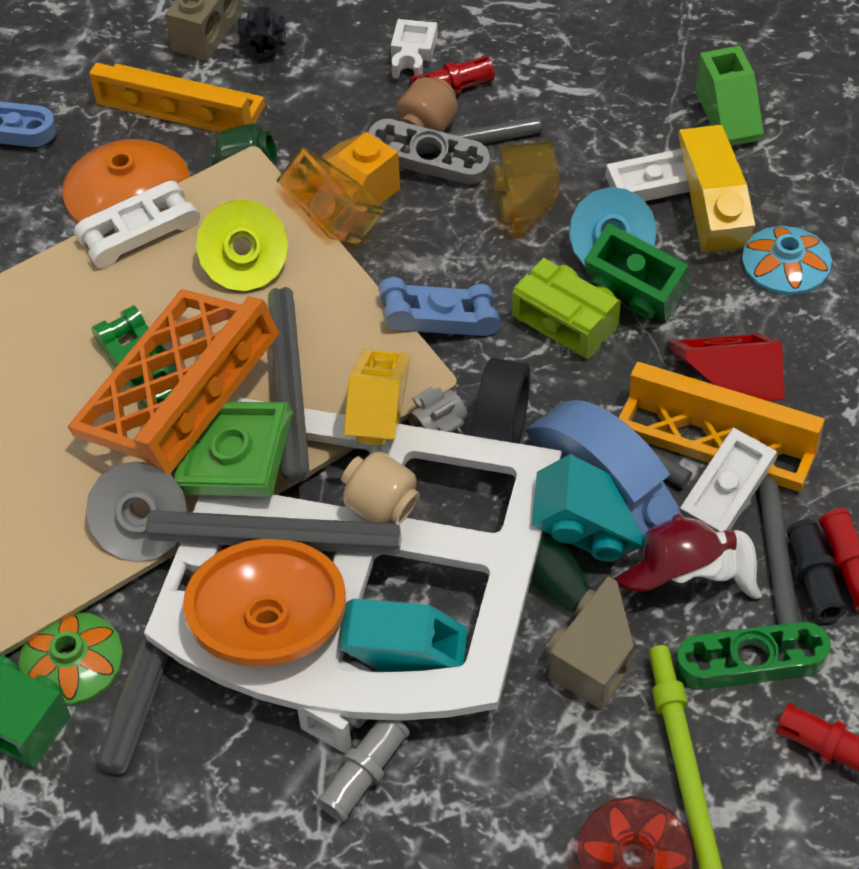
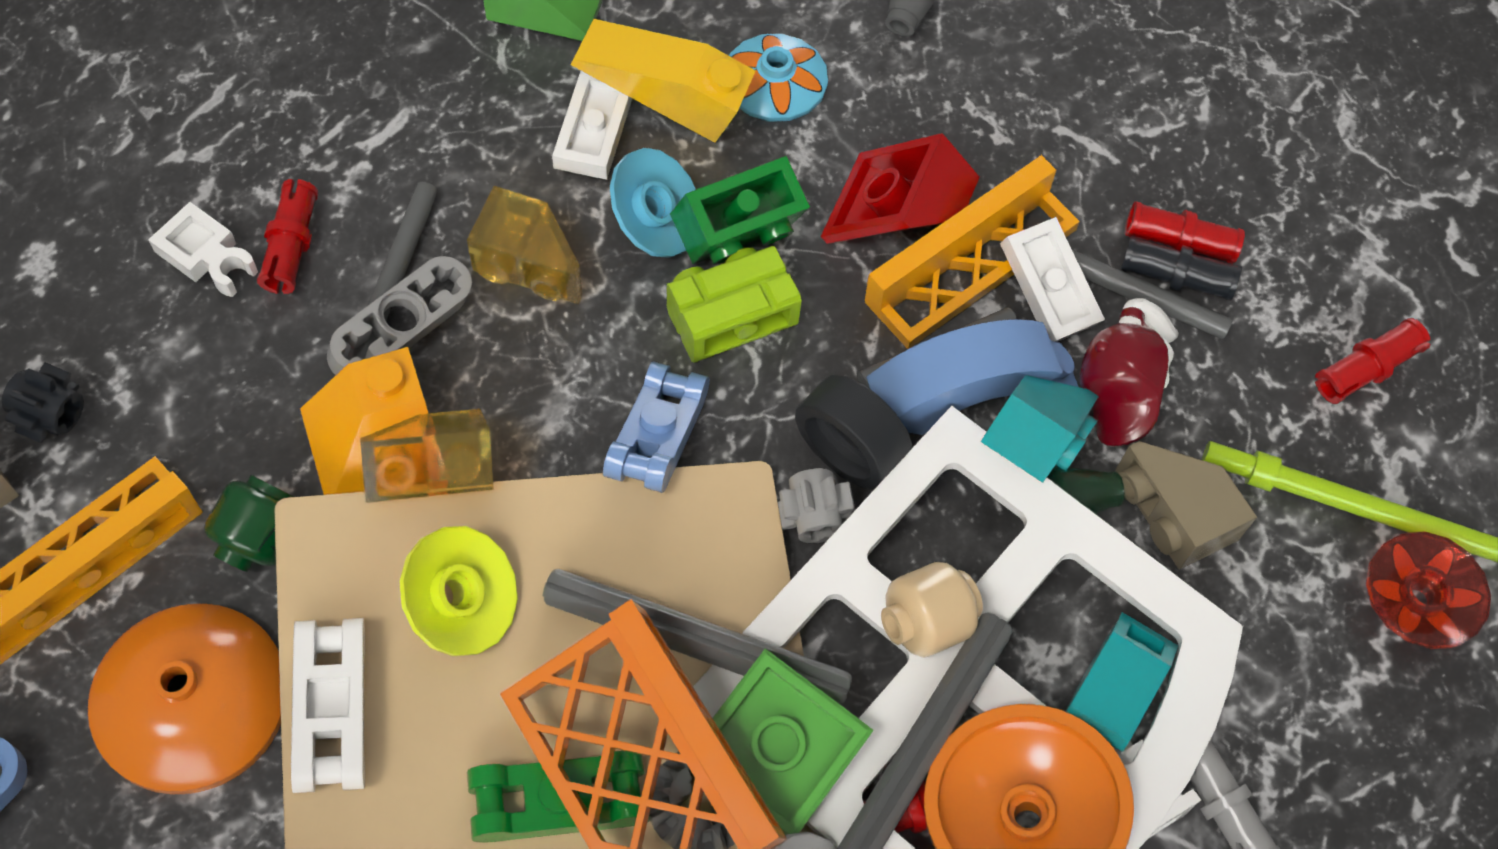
camera: 70 degrees left, 10 degrees up
(376, 396) = (782, 543): yellow slope -> none
(428, 104) = (330, 283): medium nougat head -> none
(787, 635) = (1263, 359): green beam -> none

